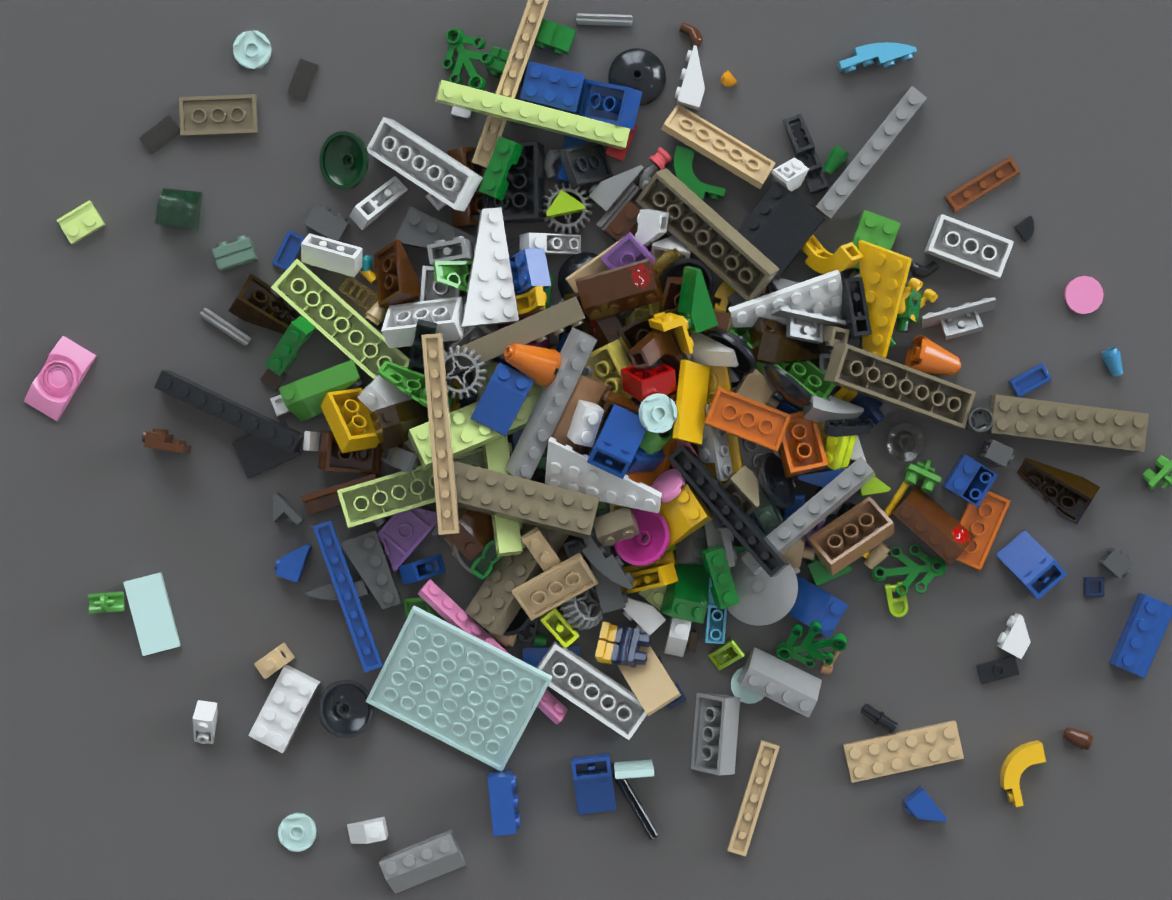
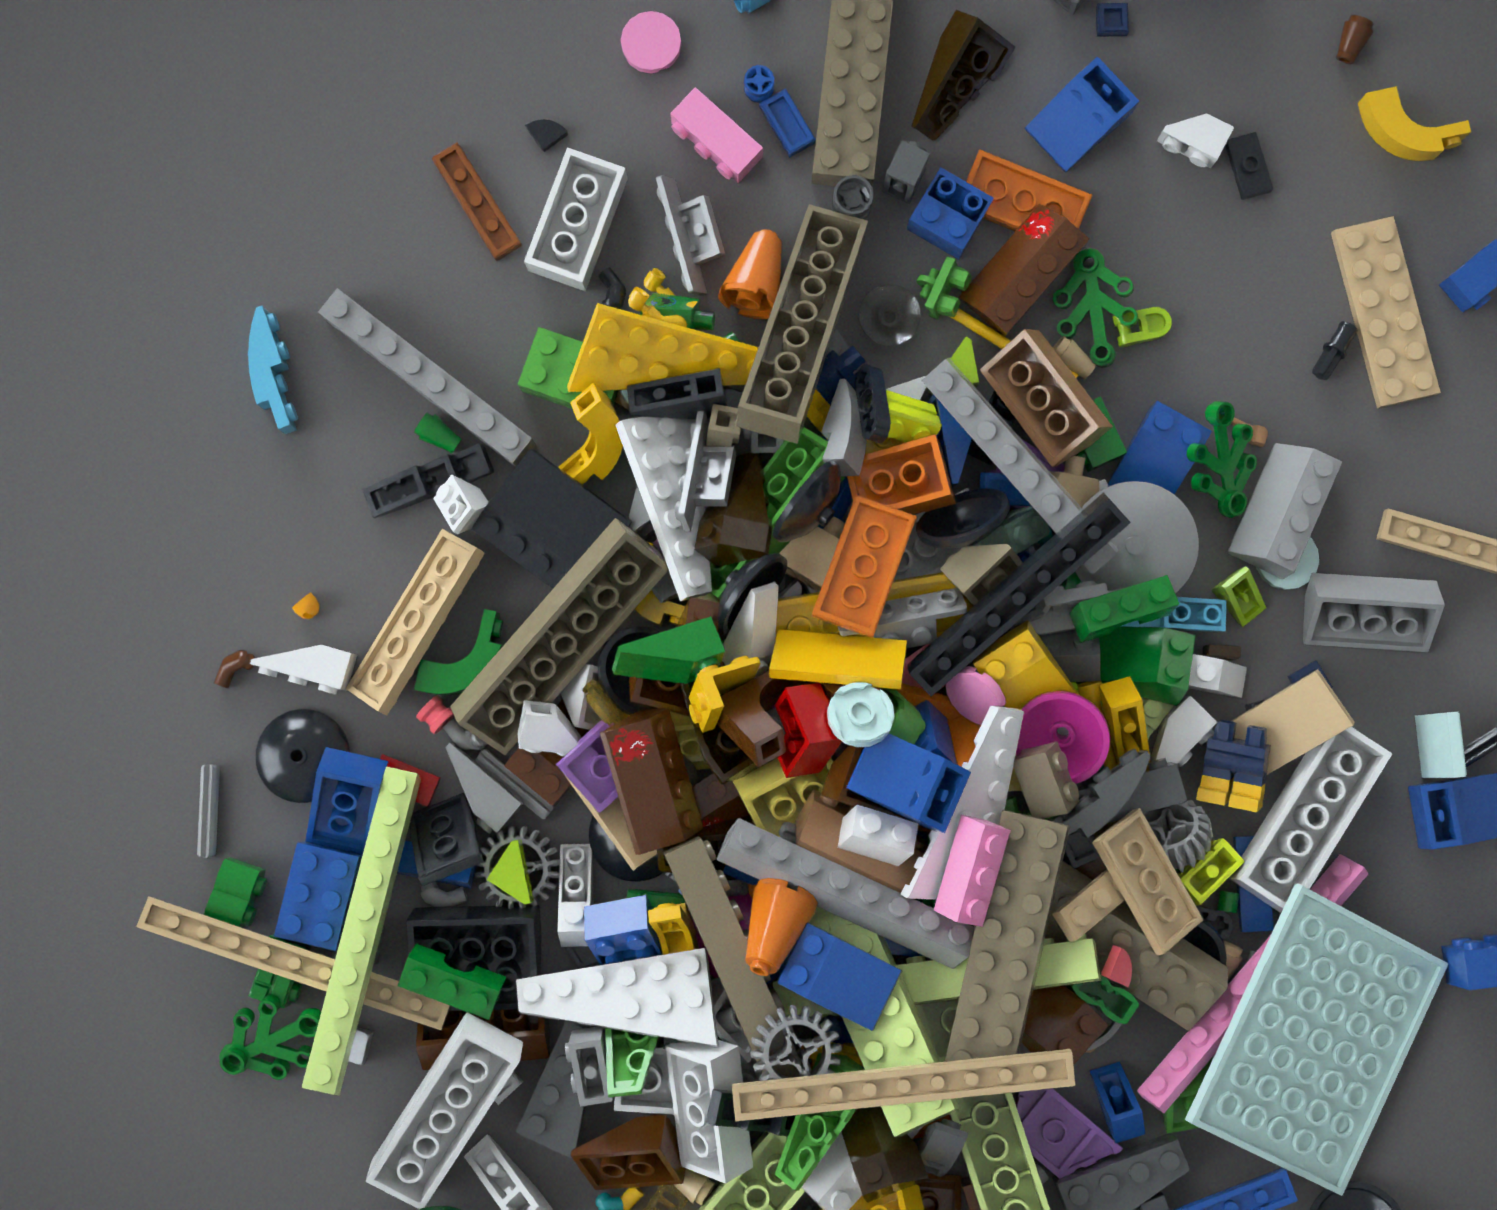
camera: 90 degrees left, 5 degrees down
(504, 567) = (1118, 966): none -> coral tile
(564, 478) = (971, 870): none -> bright pink brick
(1021, 335) = (716, 136): none -> bright pink brick
(1057, 360) = (759, 76): none -> blue wheel

